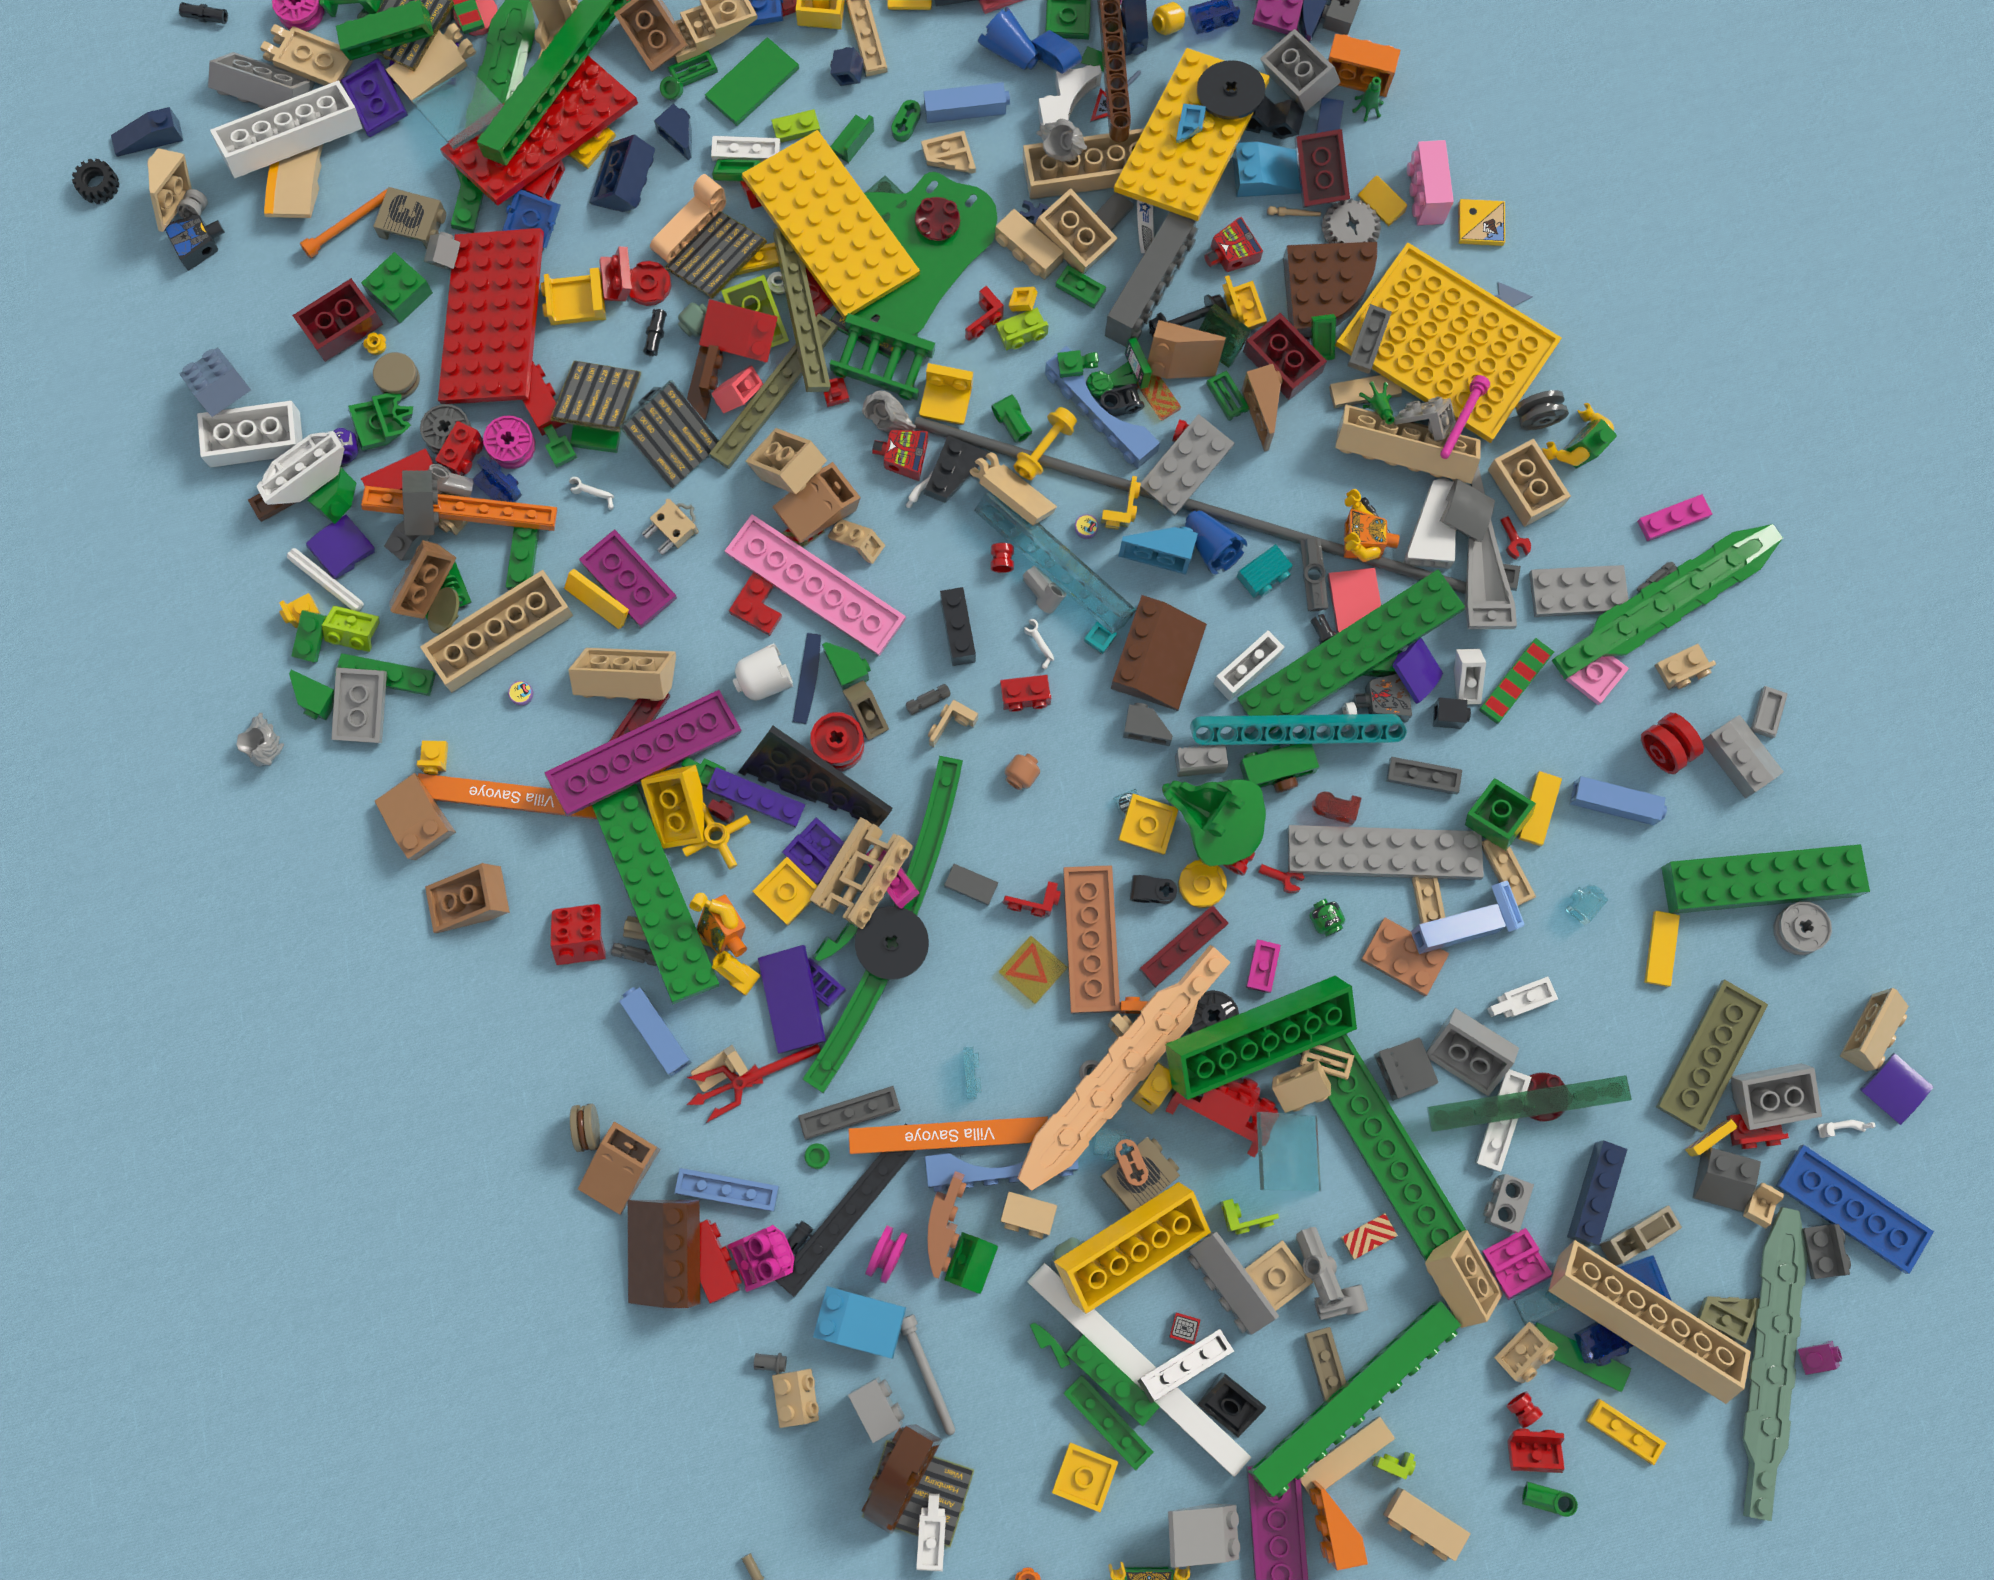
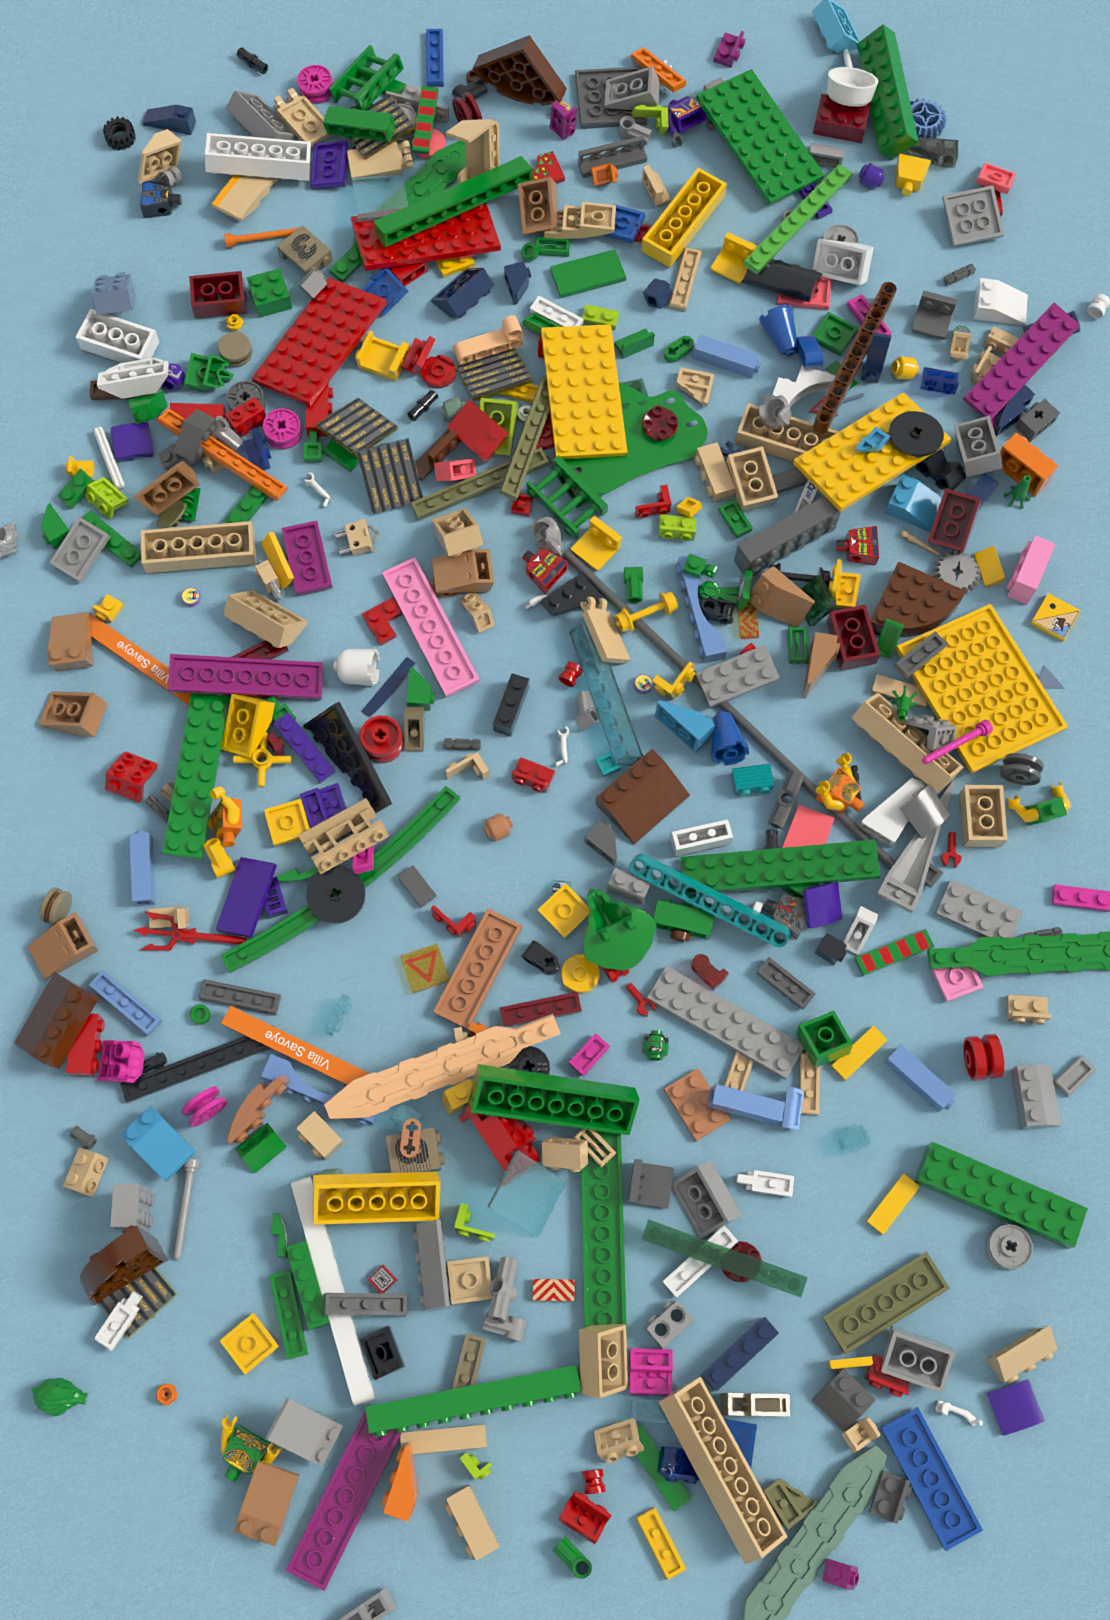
camera: 30 degrees right, 5 degrees down
(600, 625) = (268, 578): none -> tan piece

